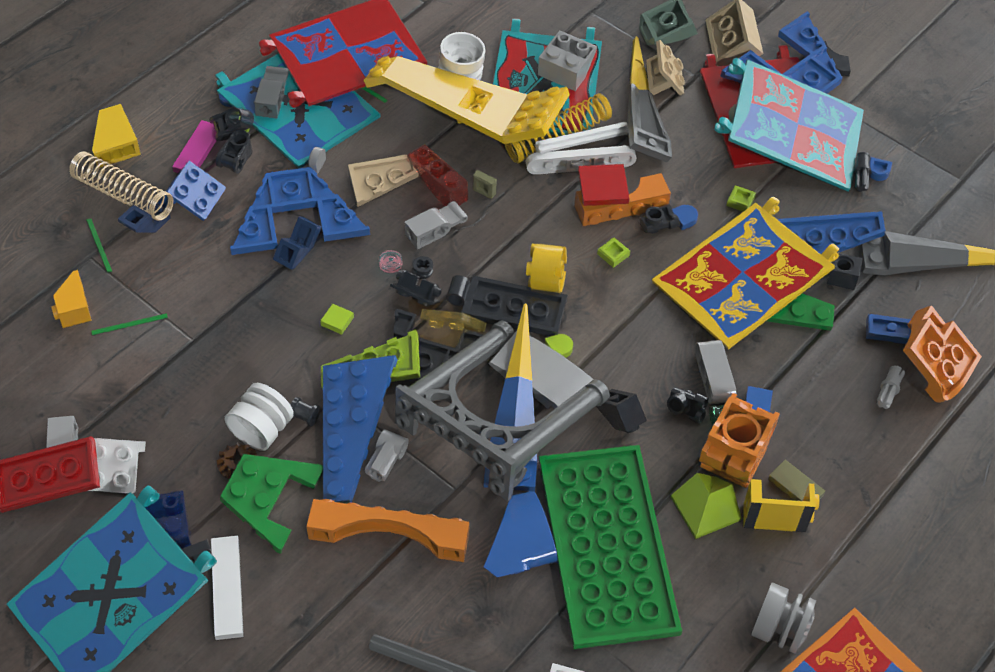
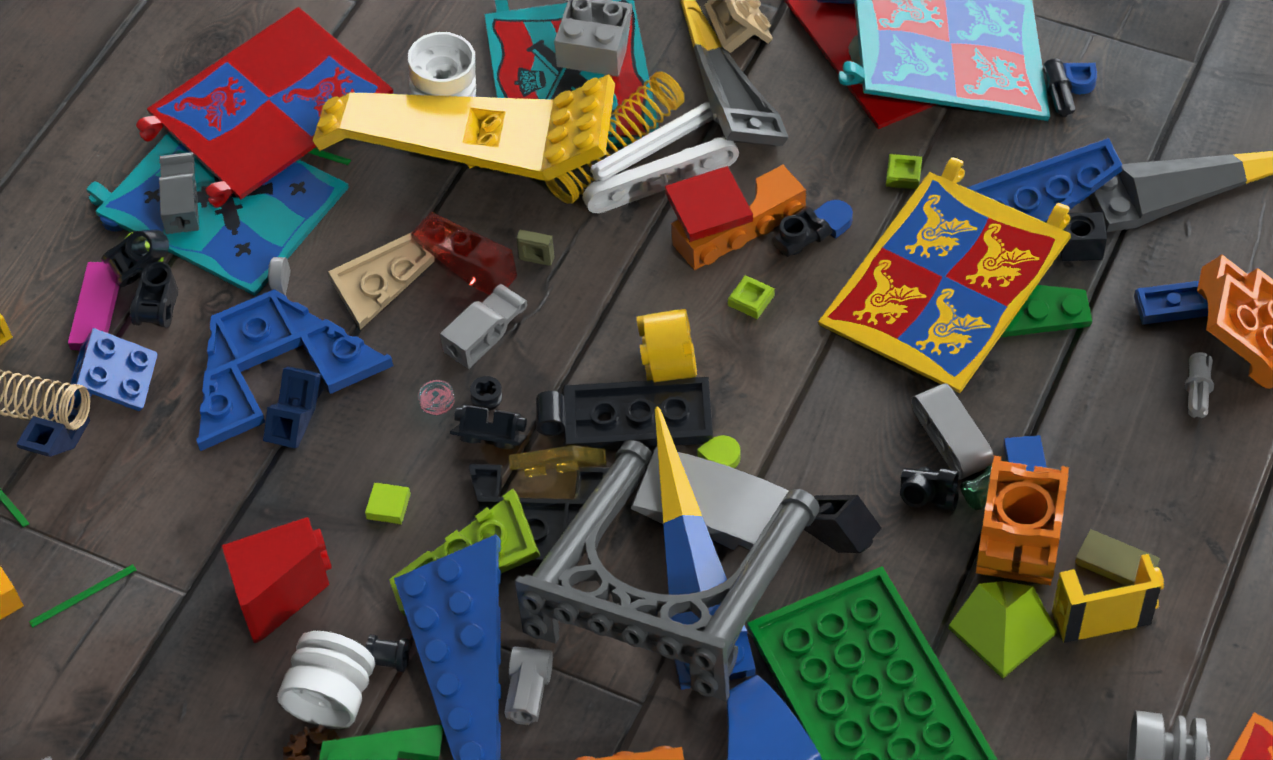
camera: 10 degrees left, 0 degrees up
(250, 343) = (277, 573): none -> red slope

